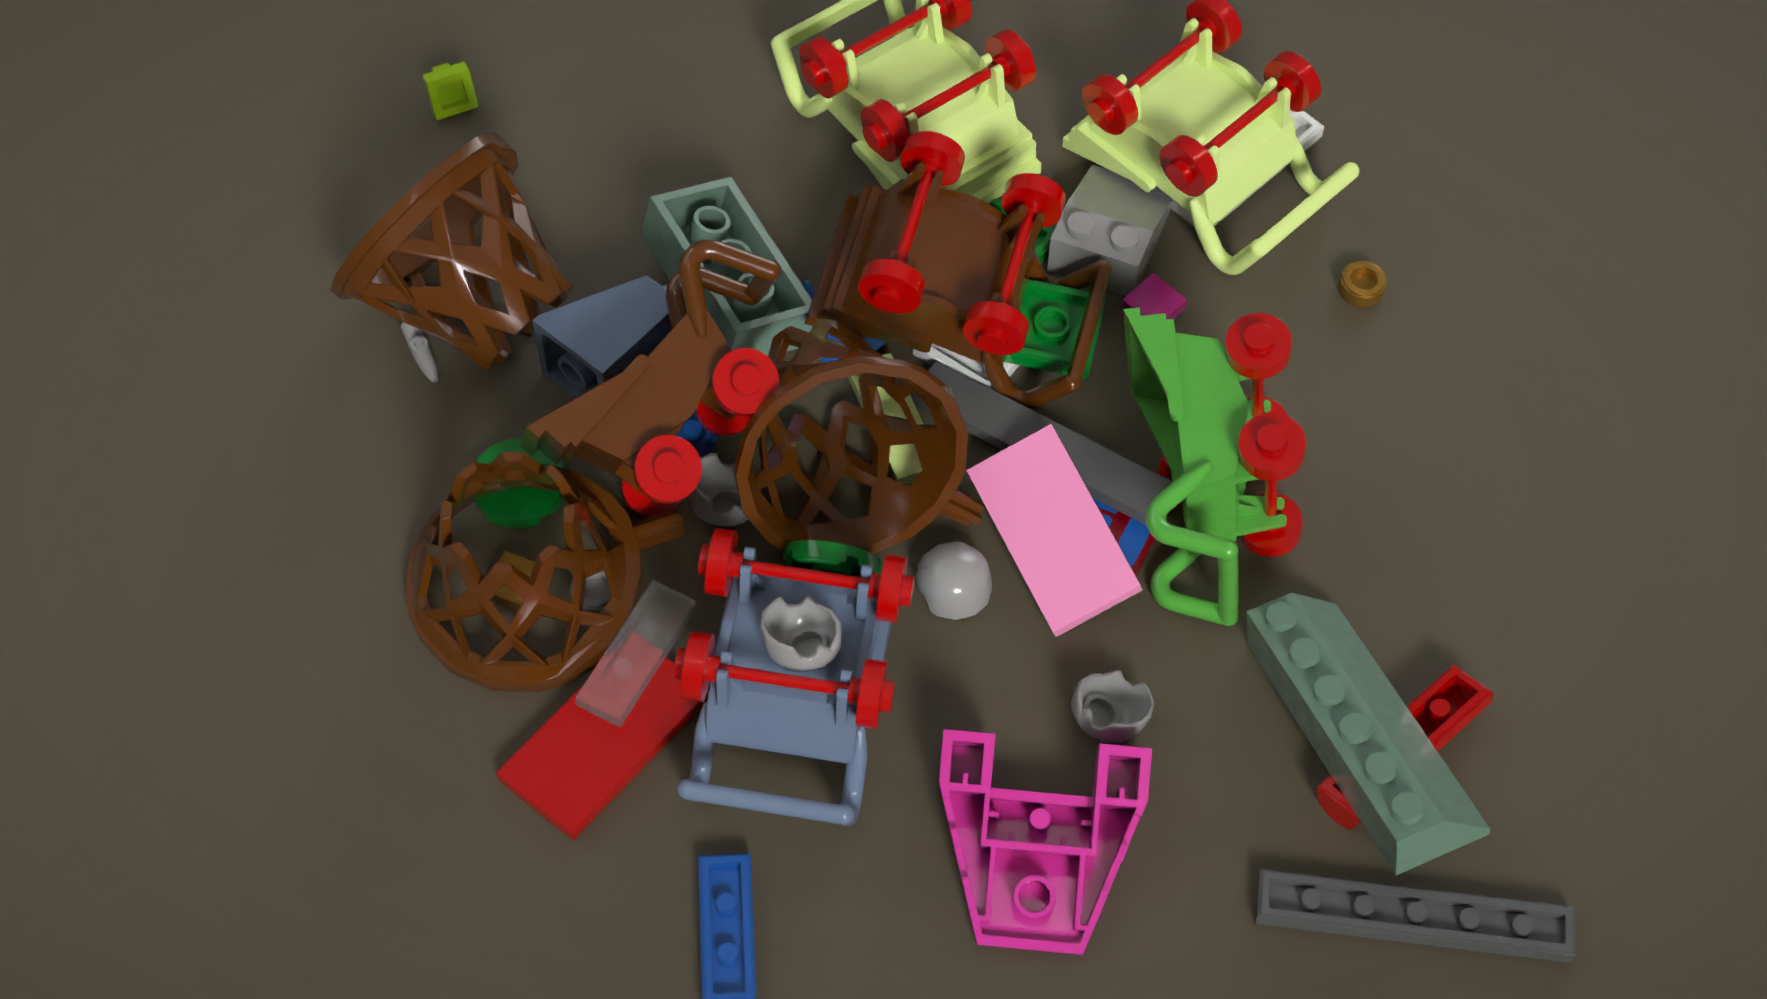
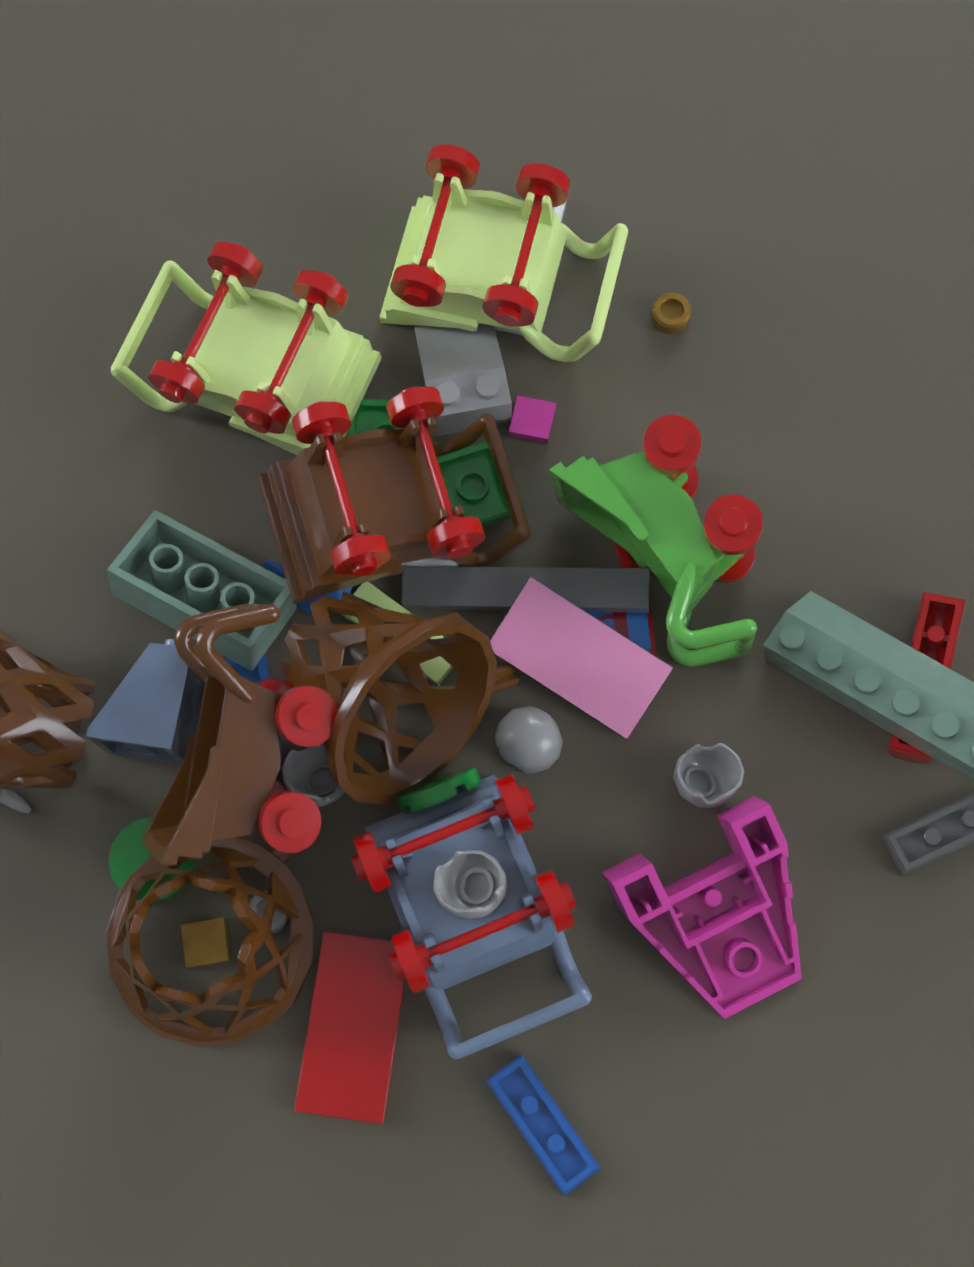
camera: 25 degrees left, 15 degrees up
(636, 653) = (337, 950): clear tile -> none

